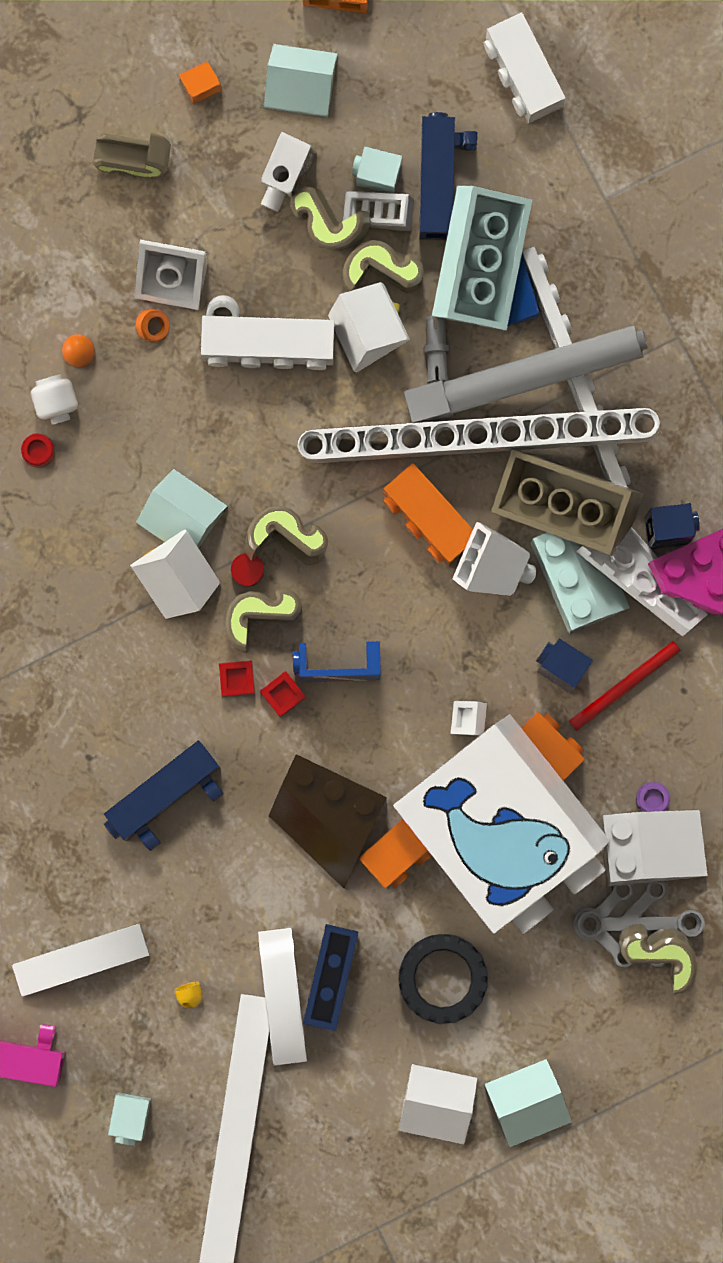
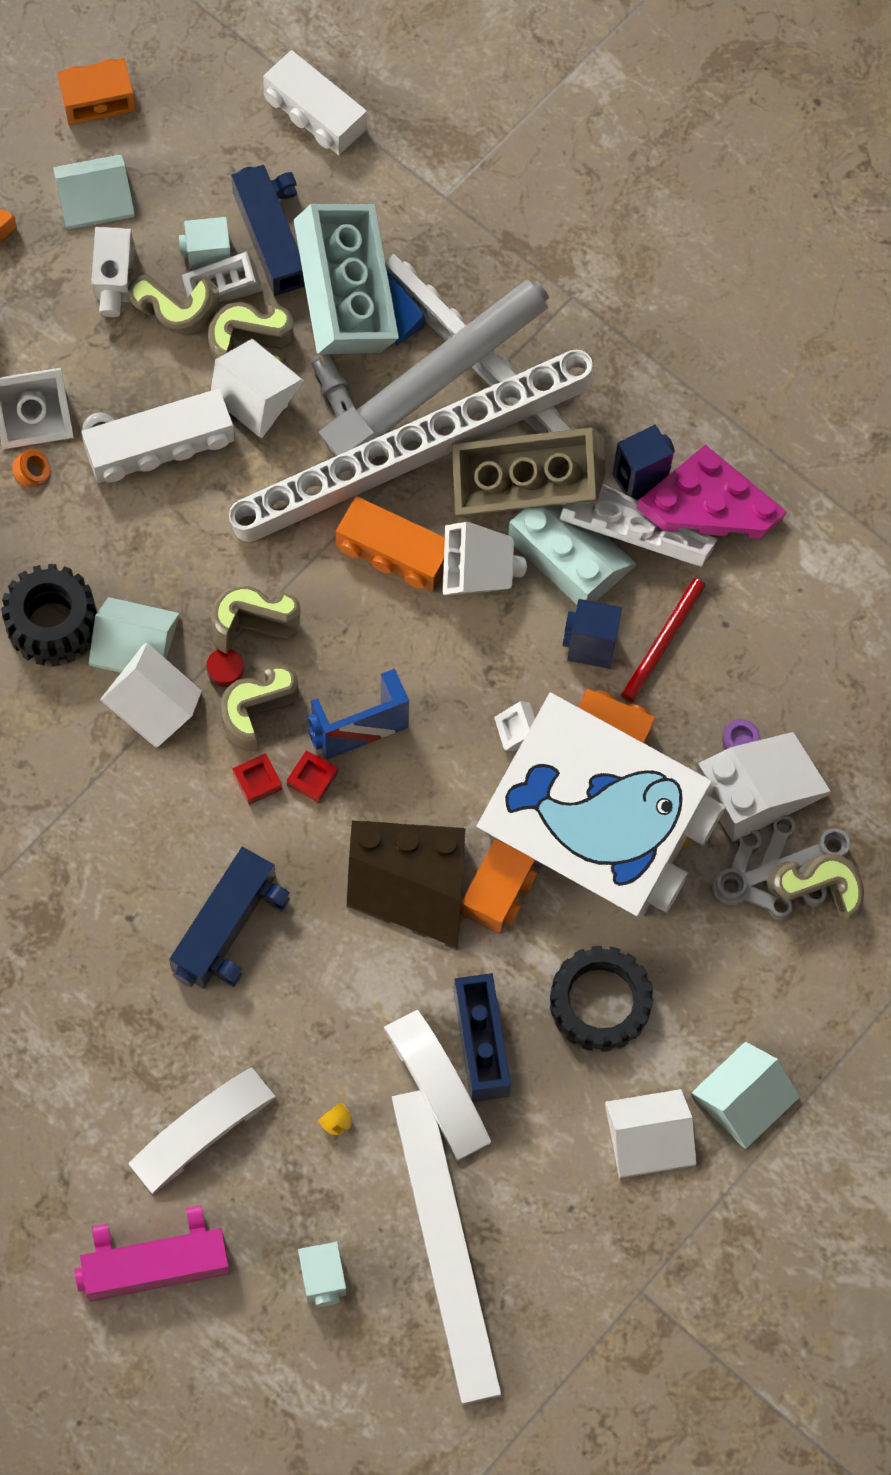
camera: 25 degrees left, 15 degrees down
(97, 451) = (41, 589): none -> black tyre

